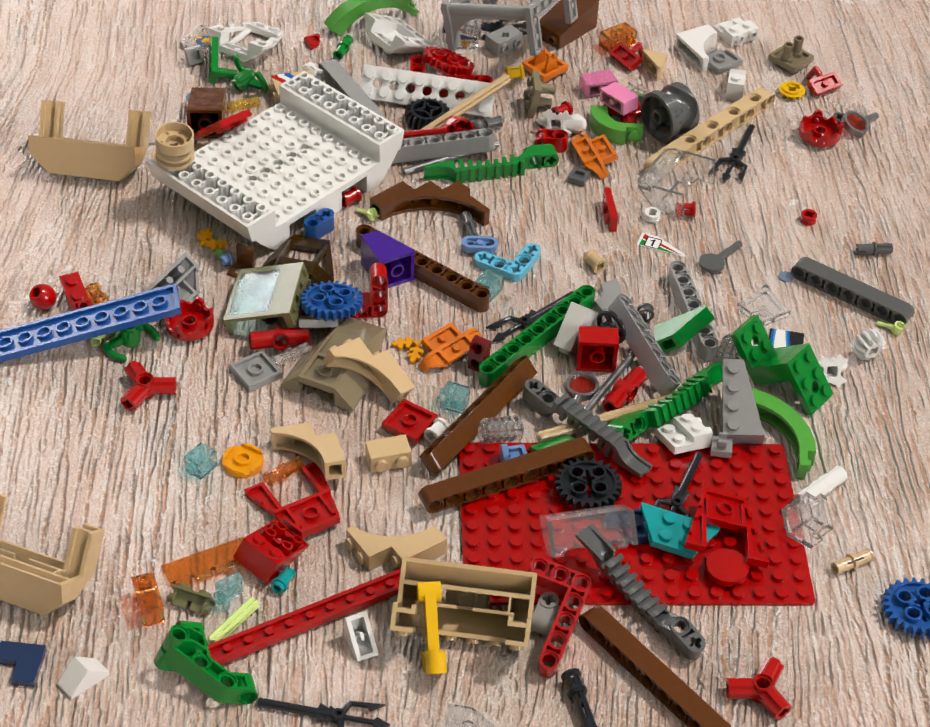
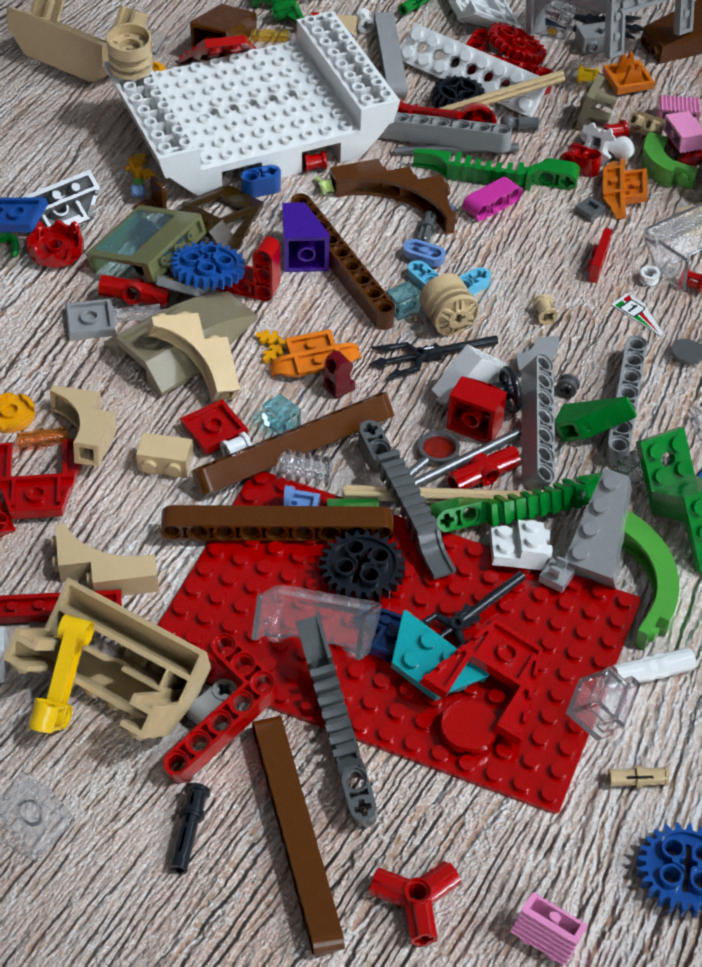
camera: 25 degrees right, 5 degrees up
(504, 188) = (492, 198): none -> dark pink beam
(528, 277) = (449, 304): none -> tan wheel
(533, 337) = (414, 374): green beam -> none
(584, 100) = (645, 123): none -> tan hips
(859, 675) = (548, 928): none -> bright pink brick

